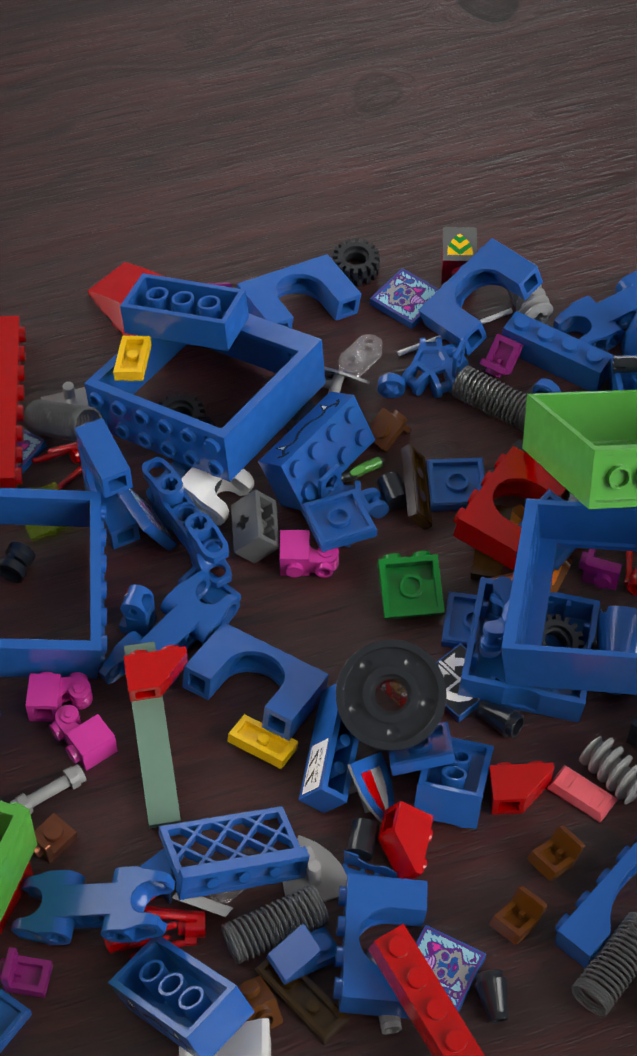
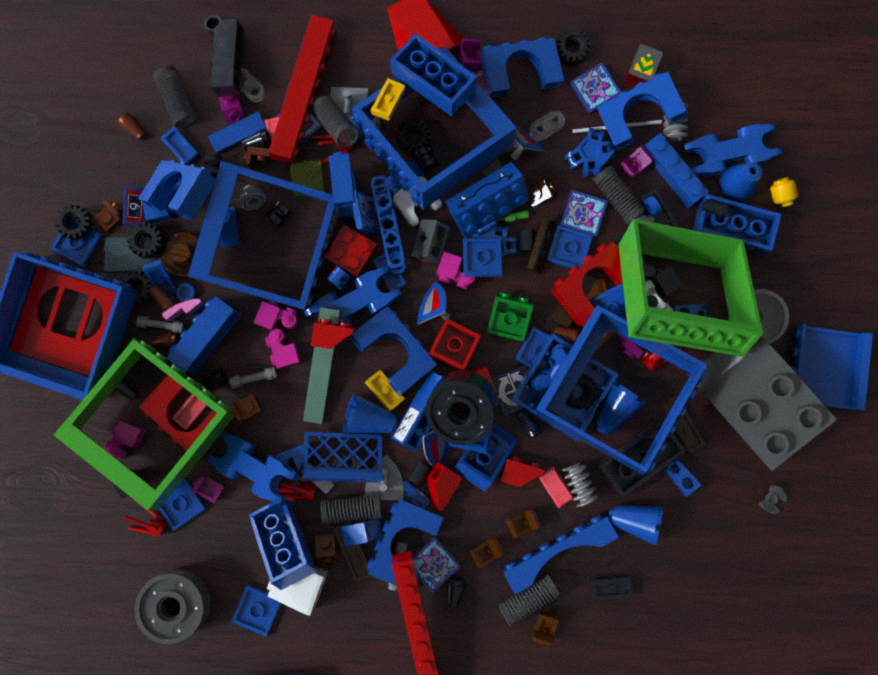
camera: 20 degrees right, 30 degrees up
(144, 565) = (351, 252): none -> red brick
(251, 781) = (368, 417): none -> blue cone
(291, 601) = (433, 304): none -> shield
(339, 635) = (454, 345): none -> red brick
(391, 385) = (556, 159): blue tile -> none
(457, 436) = (583, 213): none -> tile

